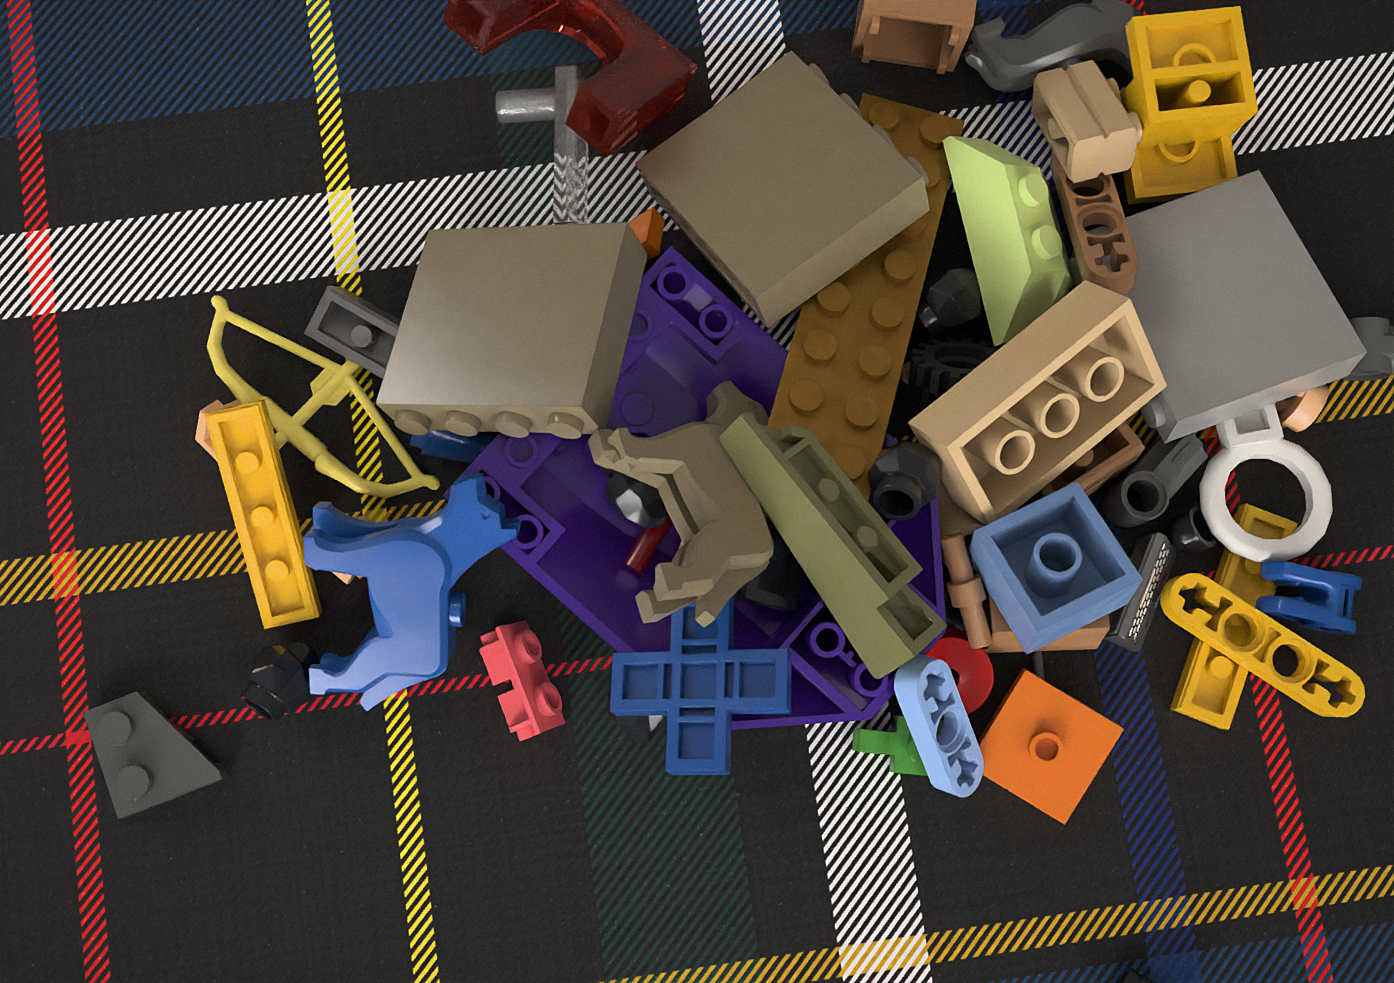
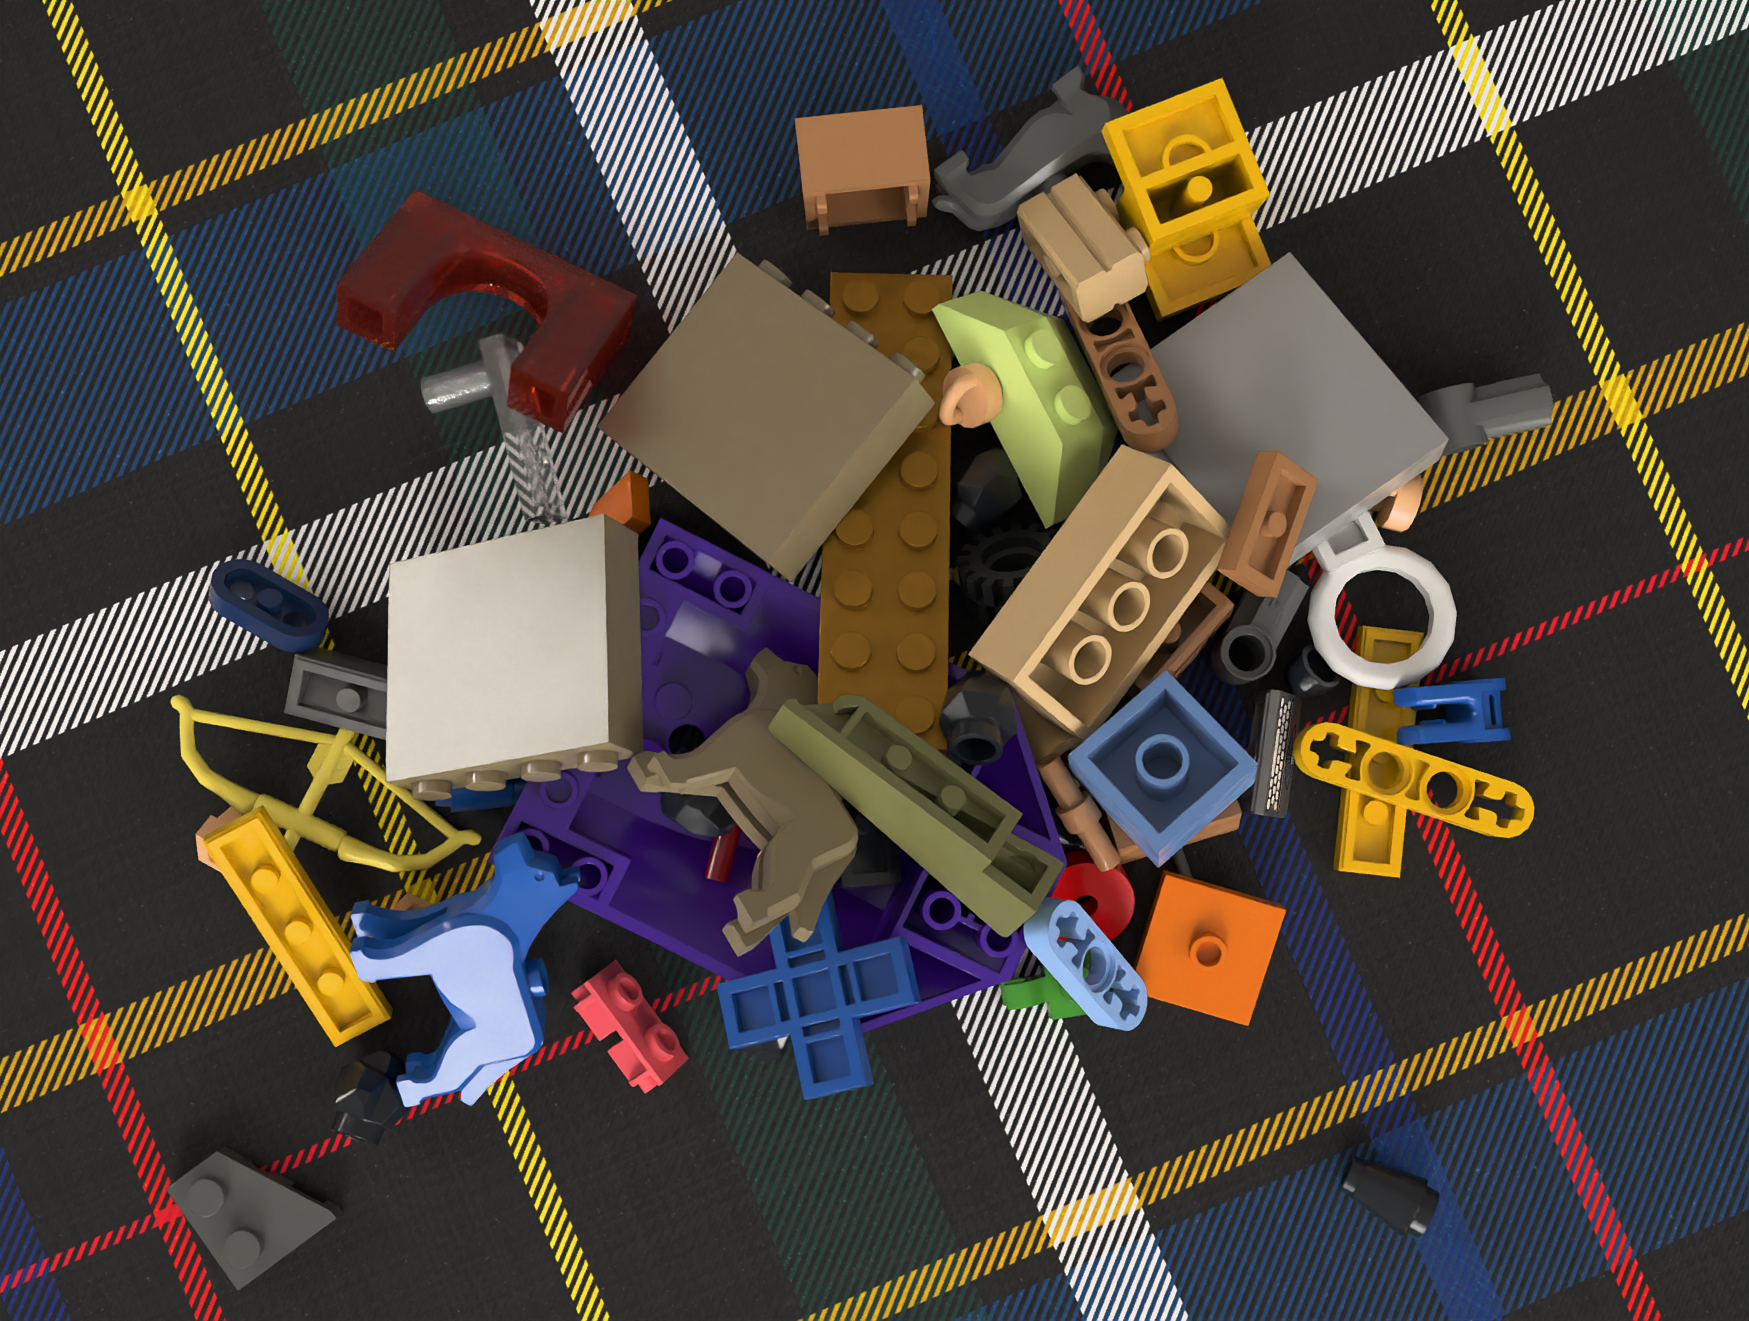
camera: 15 degrees left, 5 degrees up
(317, 241) = (273, 608): none -> dark blue plate
(959, 217) = (970, 396): none -> light nougat tile
(1195, 380) = (1267, 524): none -> medium nougat plate

